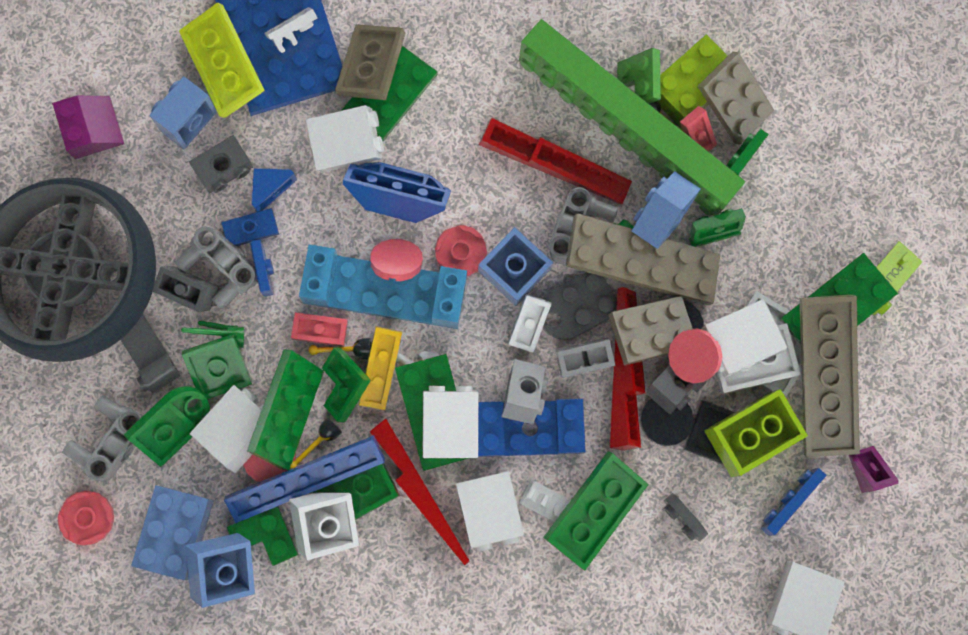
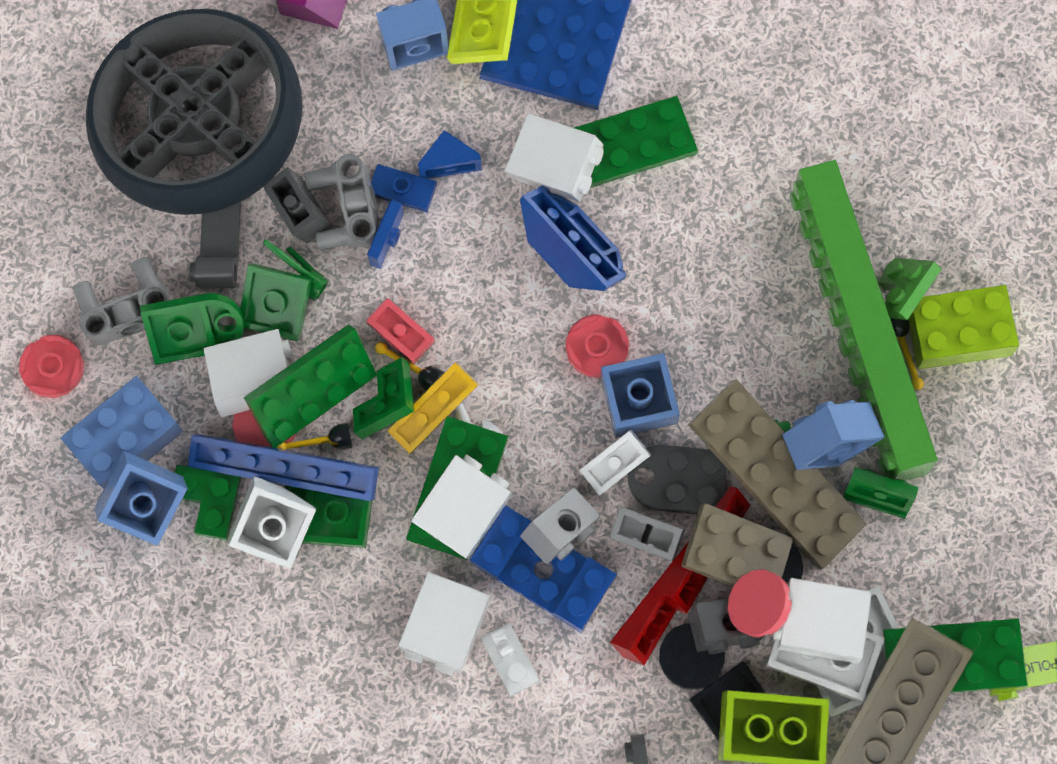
camera: 45 degrees right, 5 degrees down
(226, 151) = (403, 97): dark grey brick -> none
(300, 21) = (590, 13): white plate -> none
(354, 287) = (491, 331): dark azure plate -> none
(370, 62) = (634, 97): dark tan plate -> none
(396, 259) = (524, 311): coral tile -> none
(414, 486) = (385, 551): red slope -> none
(554, 161) = (757, 317): red slope -> none
(565, 219) = (760, 386): light grey piece -> none
(596, 510) = (551, 696): green plate -> none
(699, 128) = (929, 380): coral plate -> none
(736, 97) = (993, 371): dark tan plate -> none
(746, 151) = (972, 433): green plate -> none

